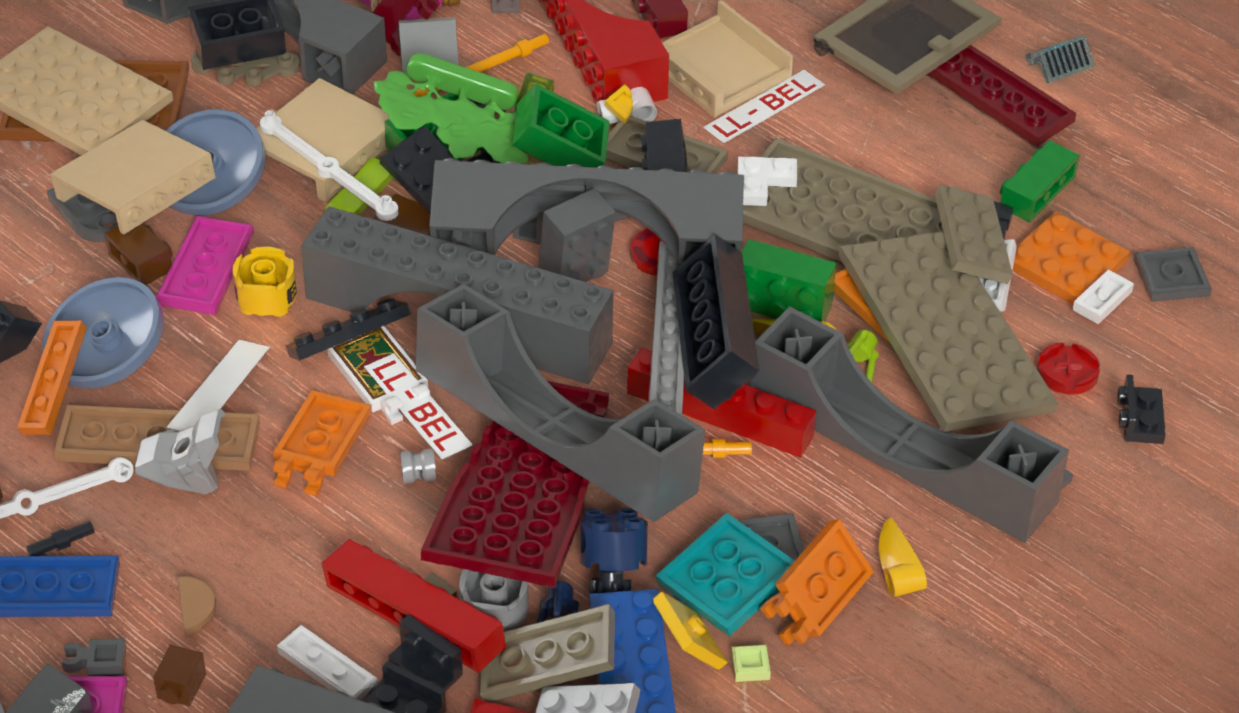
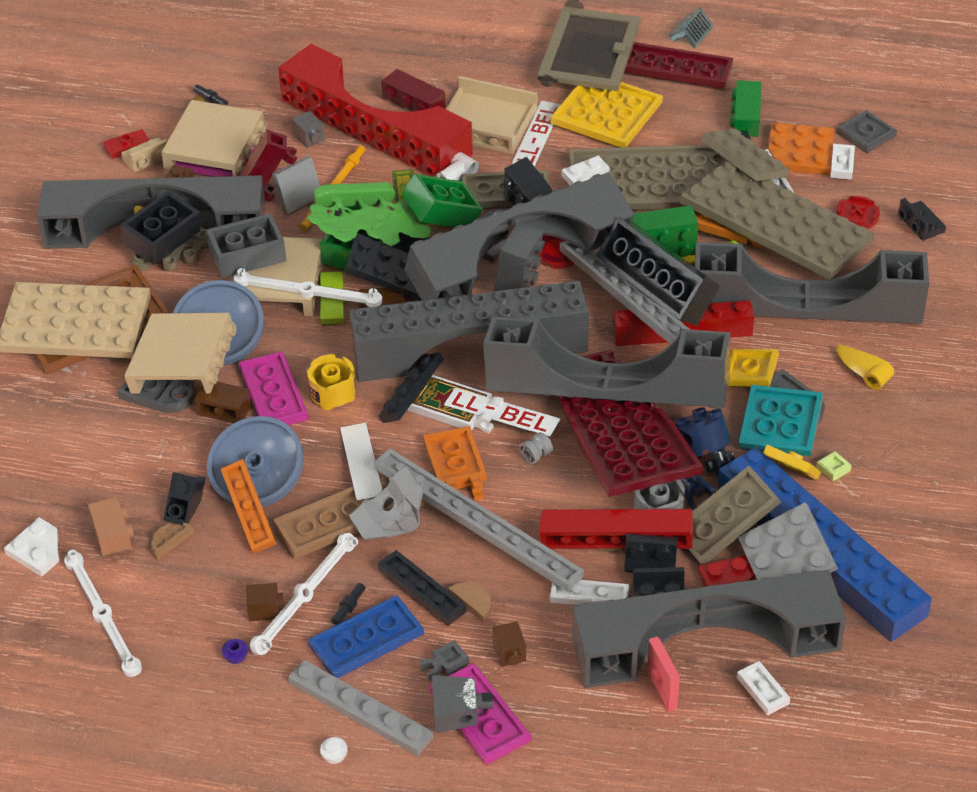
camera: 30 degrees left, 0 degrees up
(150, 562) = (422, 587): none -> black plate
(273, 519) = (486, 523): none -> light grey plate
(299, 87) = (246, 245): none -> dark grey brick
(620, 103) = (458, 168): yellow tile -> none
(755, 493) = (752, 366): none -> yellow plate
(819, 584) = (838, 400): orange tile -> none
(863, 116) = (607, 114): none -> yellow plate

